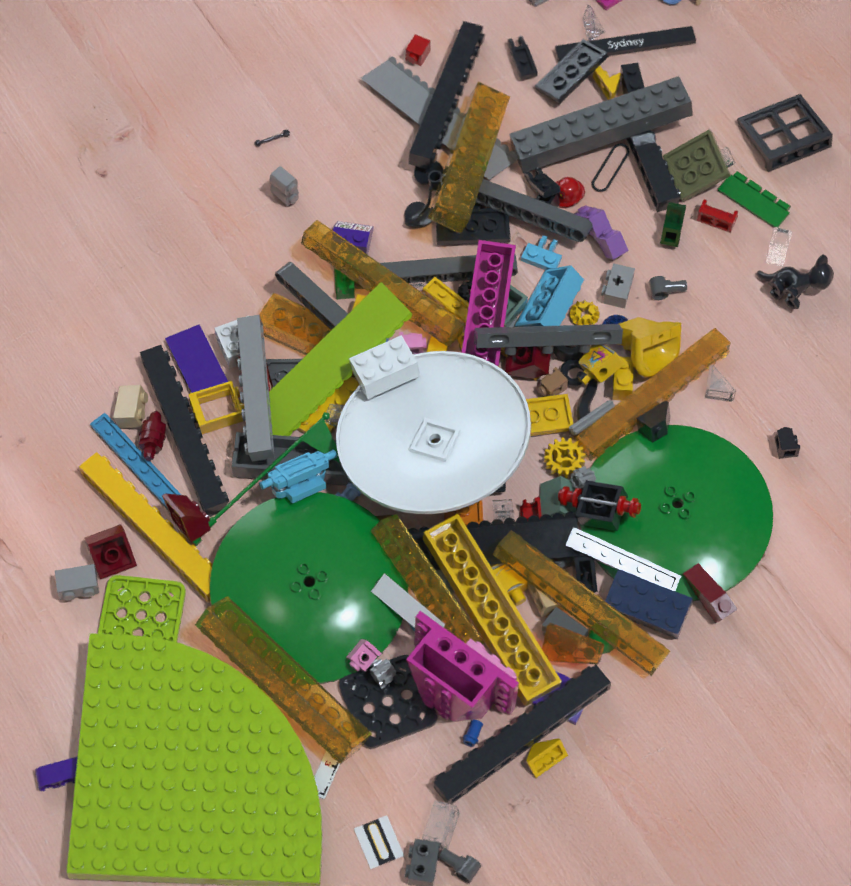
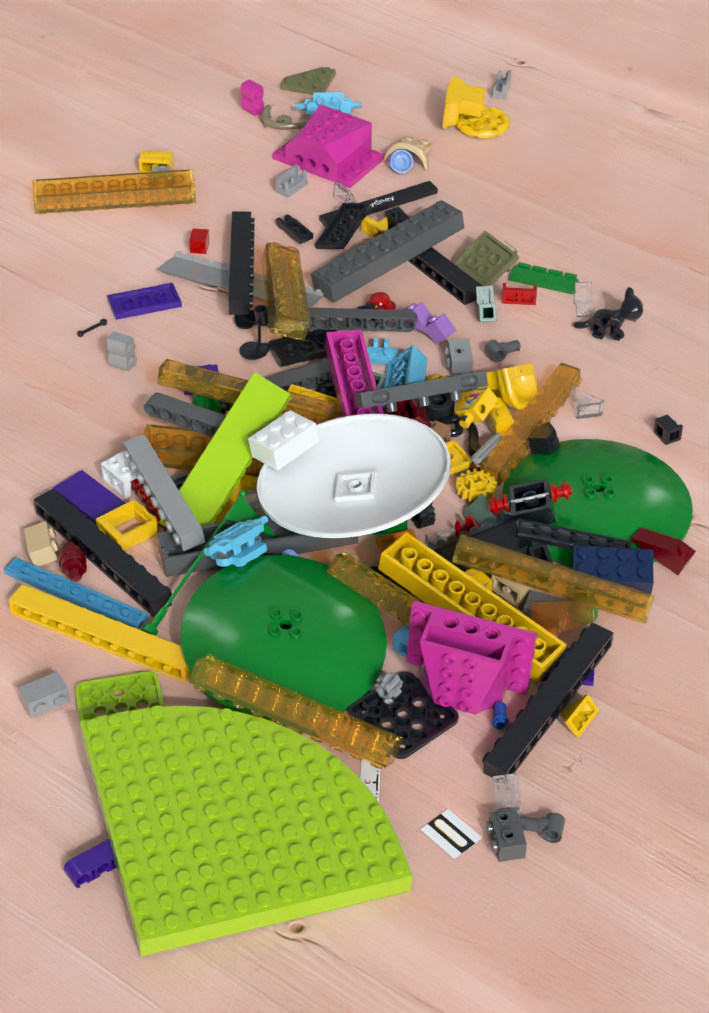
camera: 20 degrees left, 20 degrees down
(110, 551) = (70, 660): dark red slope -> none
(187, 515) = (136, 609): dark red slope -> none
(335, 116) = (144, 301): none -> dark purple tile
(361, 648) = (363, 676): bright pink brick -> none
(401, 601) = (380, 620): white sticker -> none
(542, 183) = (355, 301): black hinge -> none
(580, 476) = (501, 489): light grey gear -> none
(593, 181) = (415, 285): black piece -> none
(797, 148) = (555, 242): black window -> none

